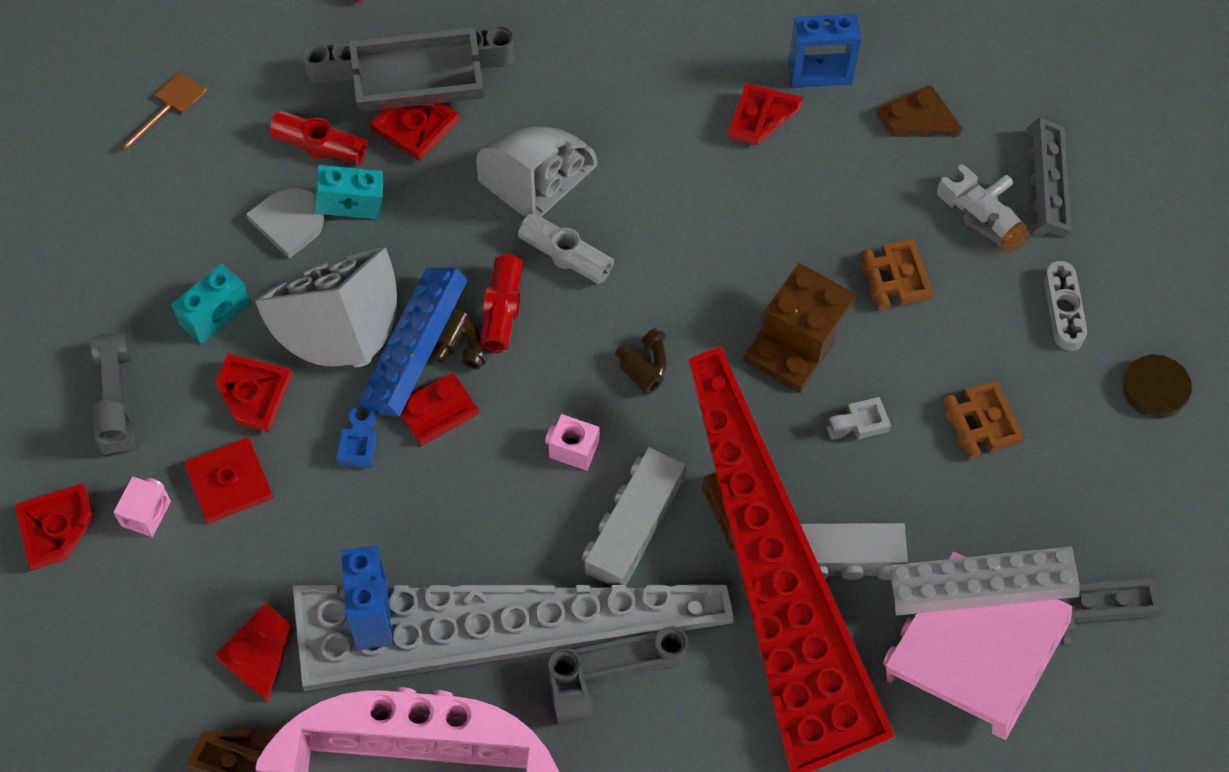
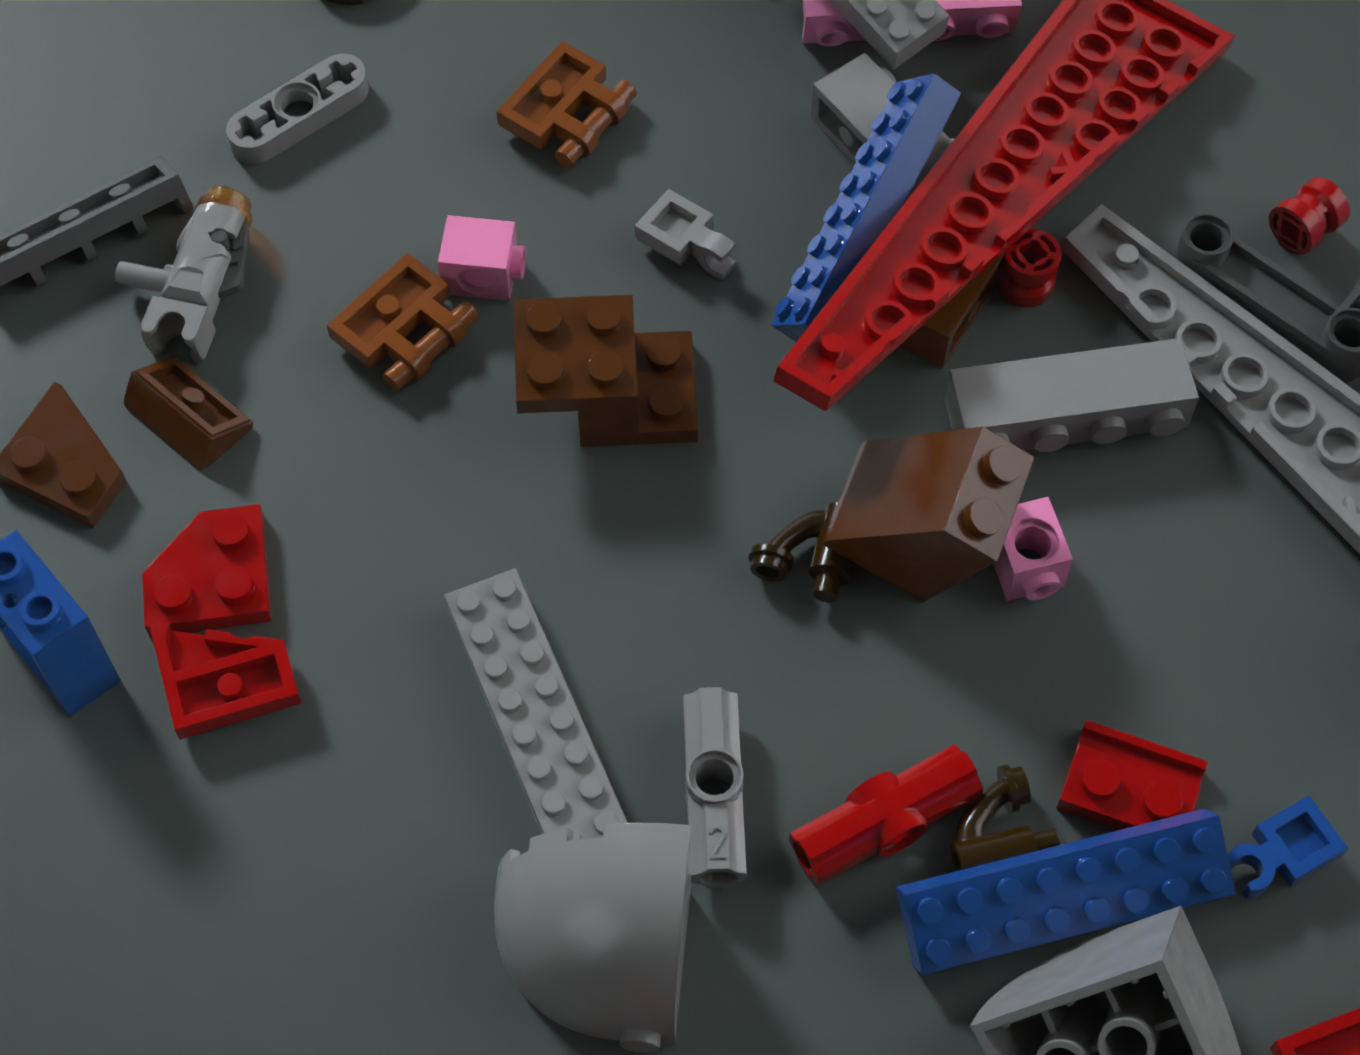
camera: 125 degrees left, 0 degrees up
(618, 393) = (929, 507): none -> reddish brown slope
(650, 714) = (1301, 220): none -> red wheel
(651, 210) = (532, 707): none -> light grey piece
(721, 564) = (1030, 269): none -> red wheel
(807, 488) = (868, 195): none -> blue piece
(816, 139) = (211, 574): none -> red plate
(909, 322) = (481, 257): none -> bright pink brick
(911, 173) = (185, 411): none -> reddish brown slope

